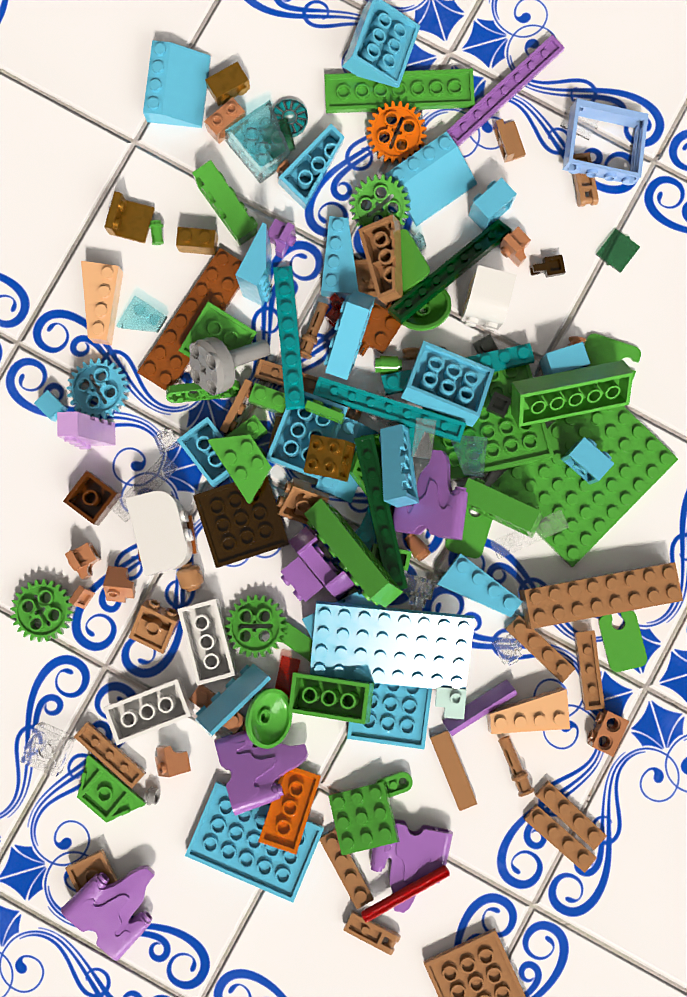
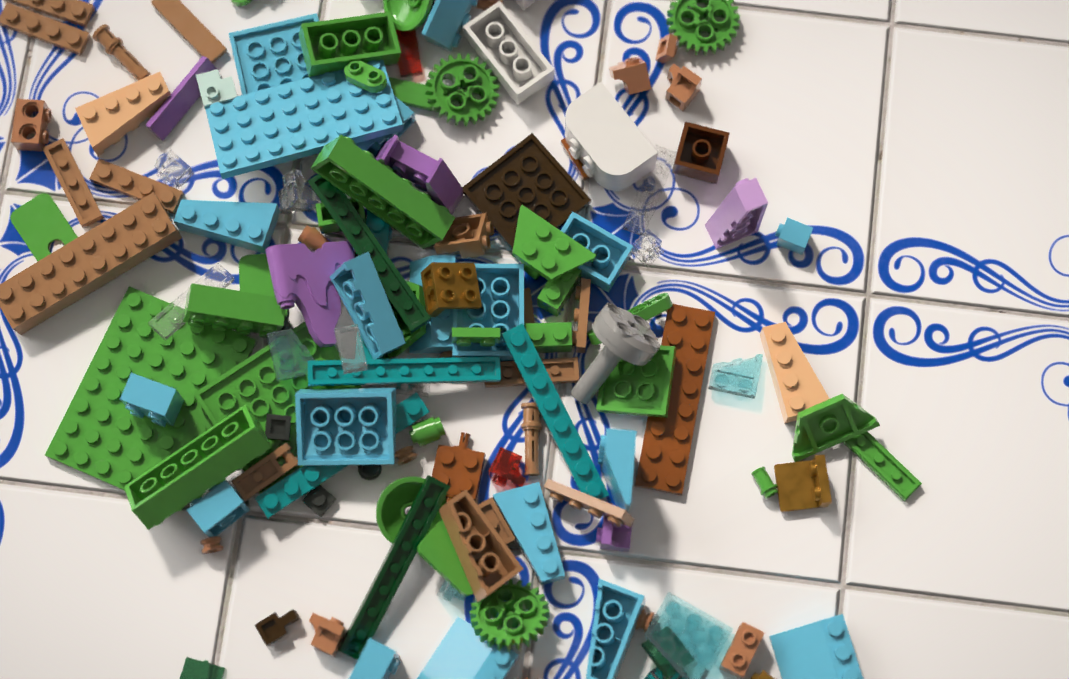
camera: 160 degrees right, 10 degrees down
(67, 219) = (883, 464): none -> bright green tile
(91, 249) = (829, 425): none -> bright green wing
(113, 380) = (763, 260): medium azure gear -> none
(154, 625) = (573, 49): medium nougat plate -> none
(190, 577) = (554, 111): medium nougat head -> none
(196, 240) = (711, 488): pearl gold piece -> none
(225, 203) = (695, 545): bright green wedge -> none
(296, 265) = (594, 506): none -> plate
(301, 579) = (429, 143): medium lavender brick -> none
(329, 661) = (363, 76): none -> bright green plate
(349, 334) = (483, 435): medium azure brick -> none
(488, 298) = (335, 541): white brick -> none
(518, 373) = (265, 472): none -> medium nougat plate
(607, 350) = (171, 546): bright green piece -> none

